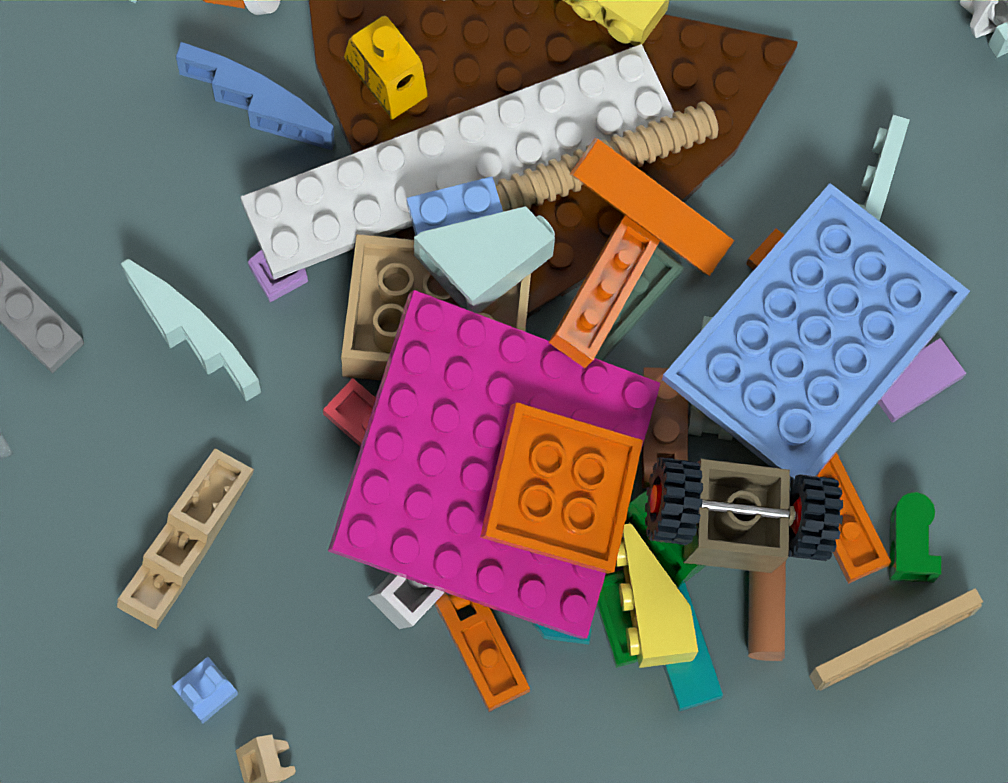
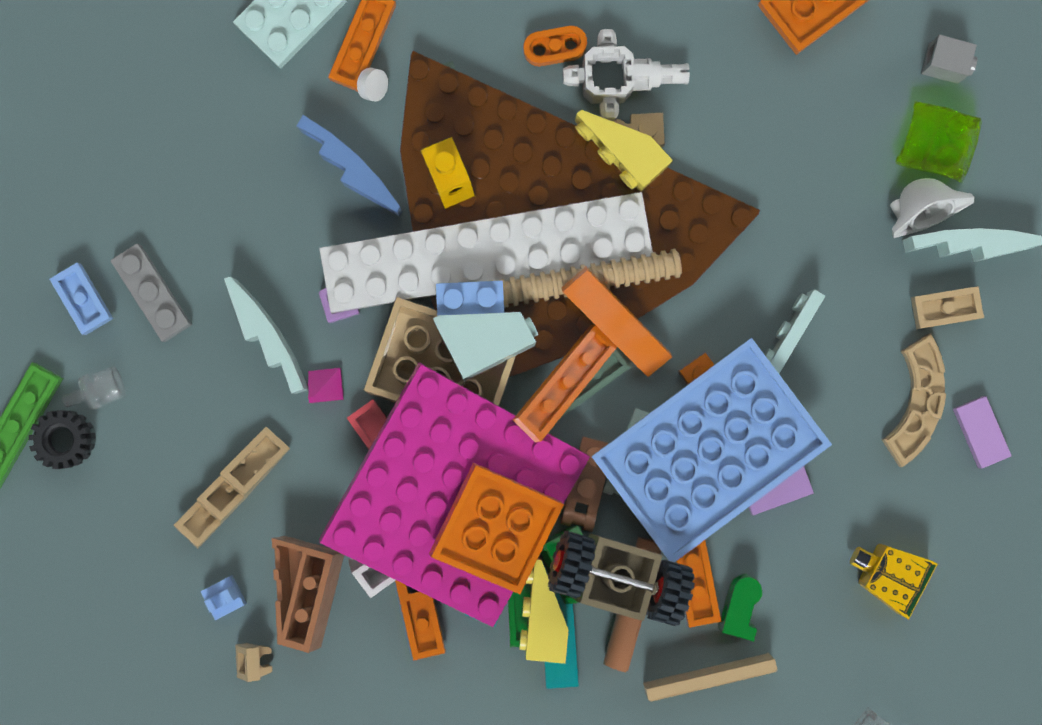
camera: 20 degrees right, 15 degrees up
(283, 380) = (325, 385): none -> dark pink slope
(319, 644) = (305, 591): none -> nougat wedge

